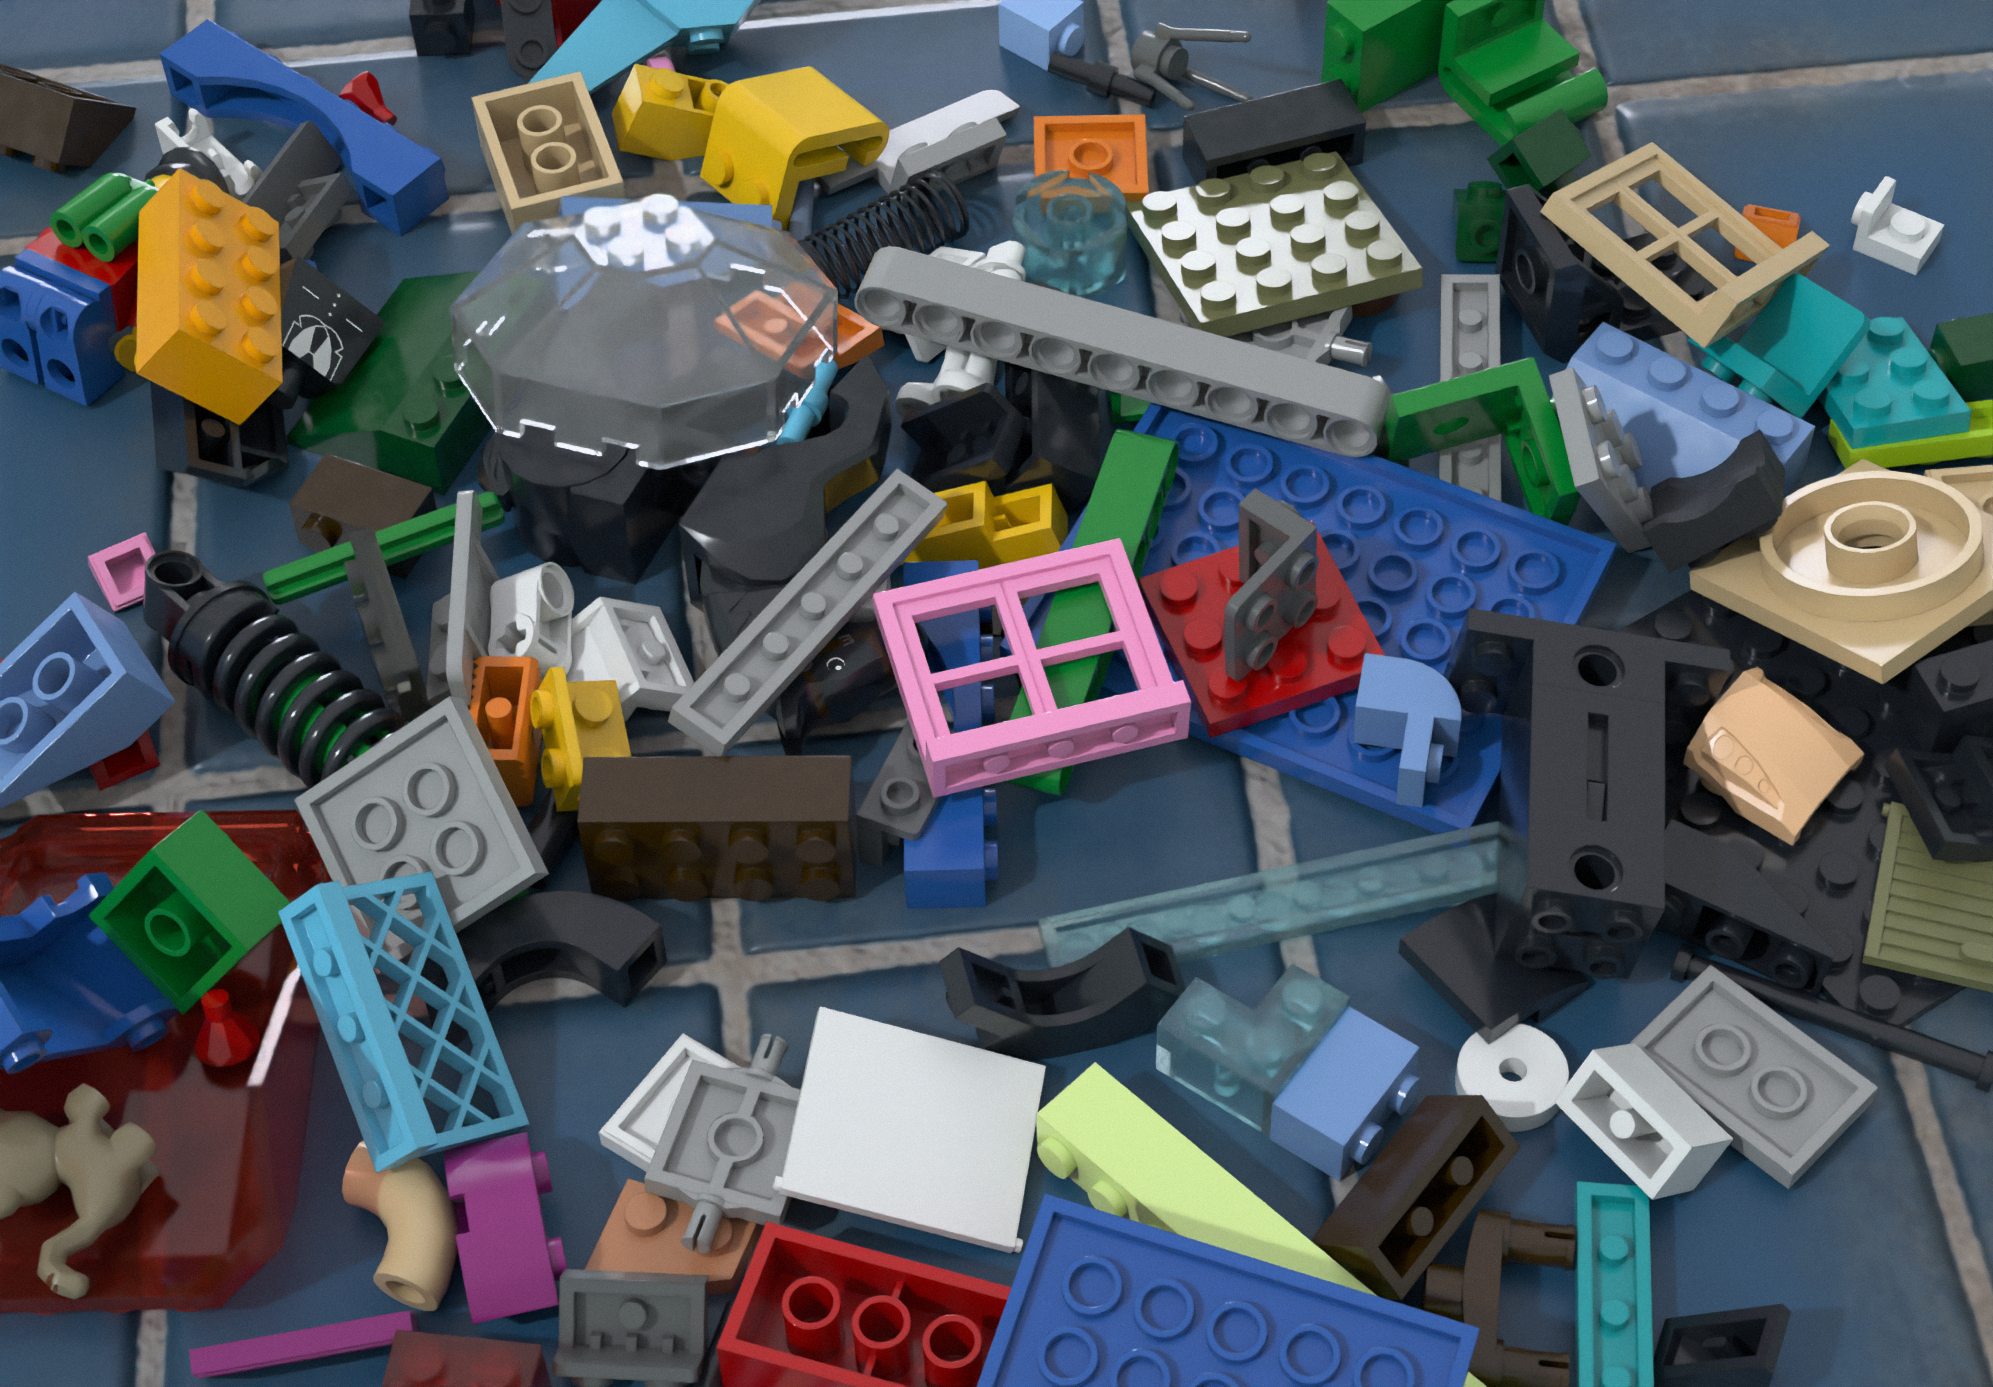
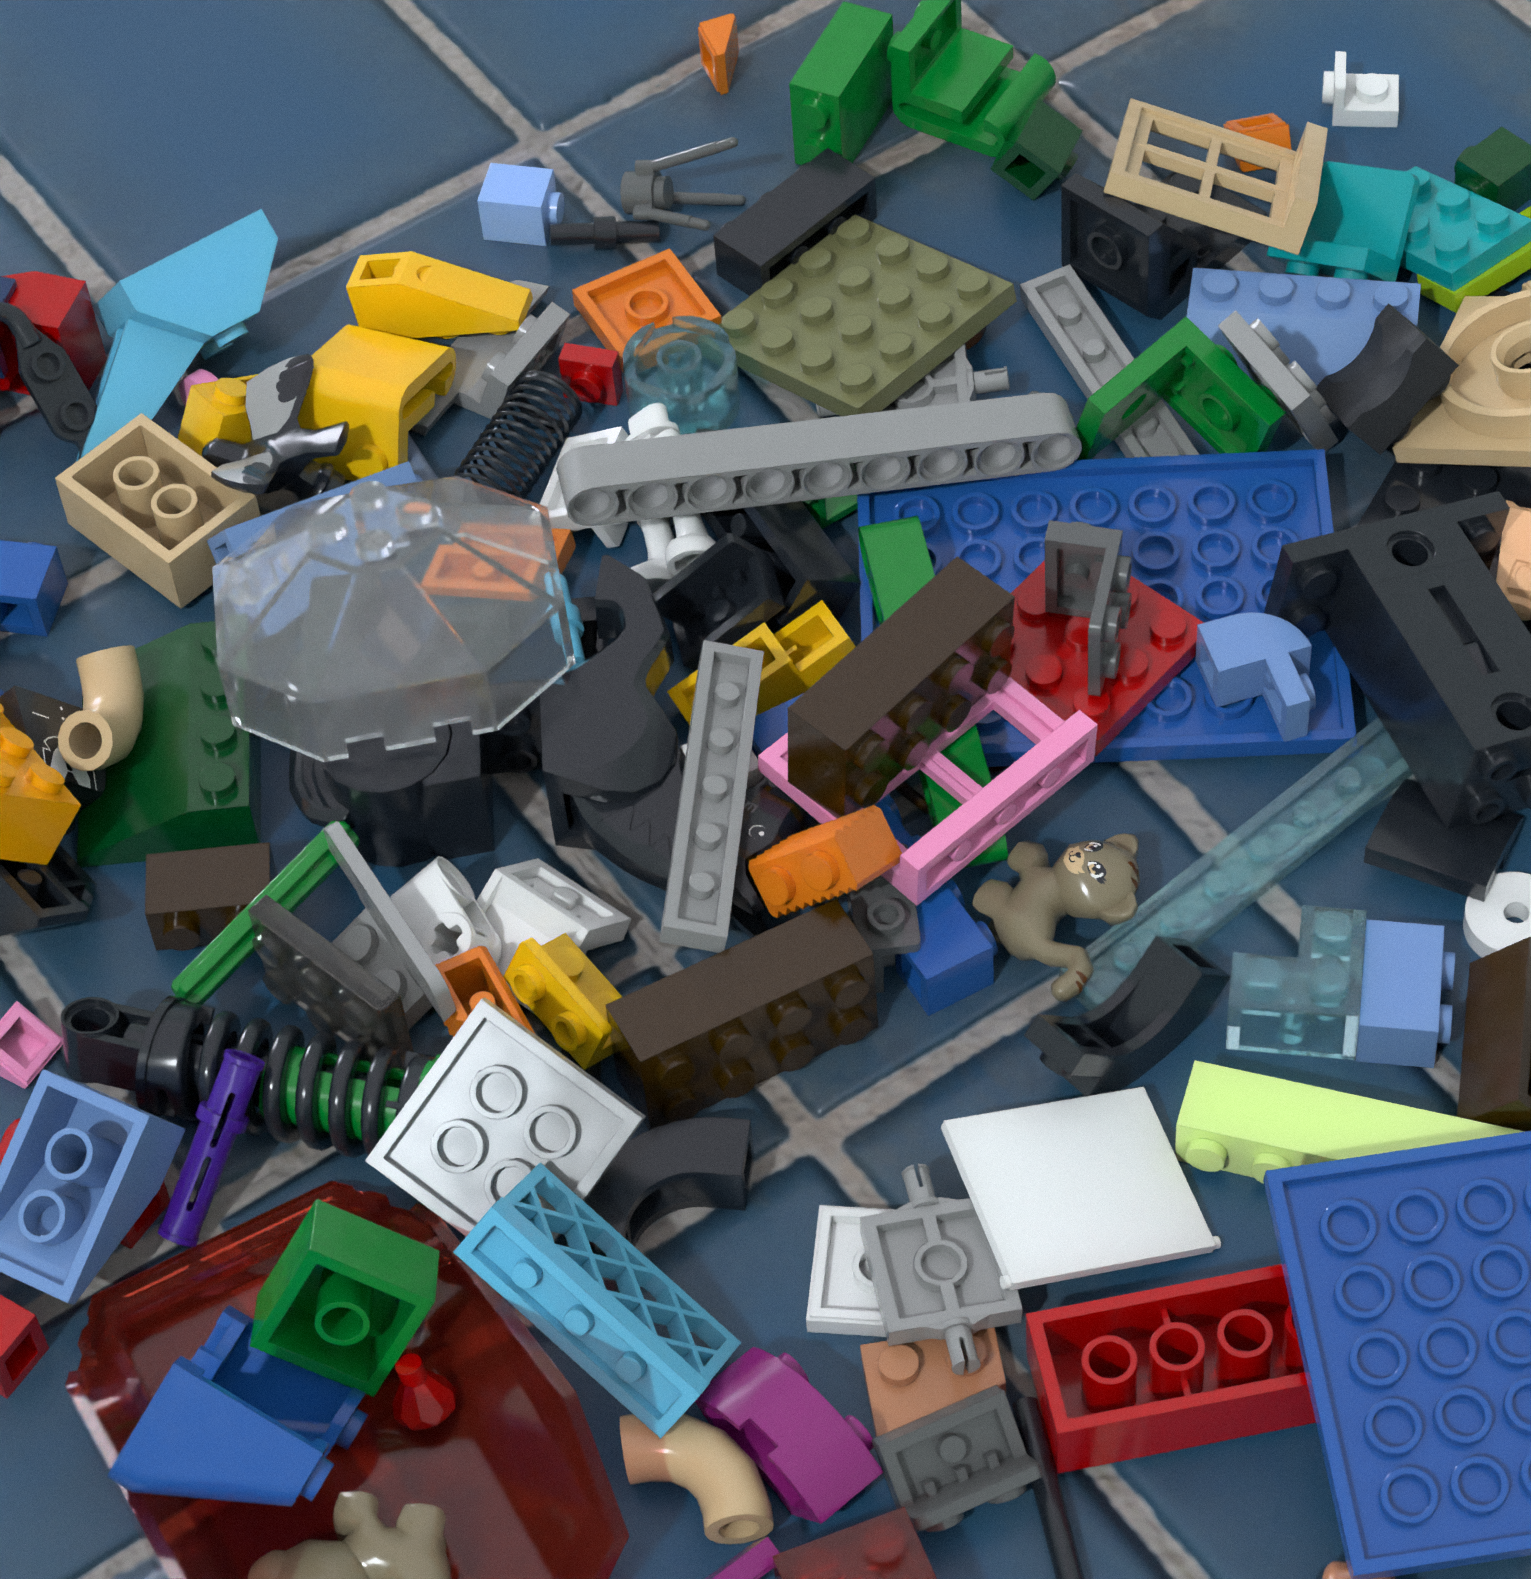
camera: 25 degrees left, 0 degrees up
(210, 709) = (237, 1076): none -> dark purple pin
(377, 320) = (110, 712): none -> tan cylinder
(676, 154) = (279, 449): none -> black animal
(865, 717) = (825, 861): none -> orange brick
(896, 70) = (432, 298): none -> yellow slope
(994, 195) = (592, 373): none -> red plate
(1019, 586) = (900, 690): none -> dark brown brick
(1113, 849) = (1086, 882): none -> dark tan animal
(1478, 220) = (1024, 222): dark green bracket -> none

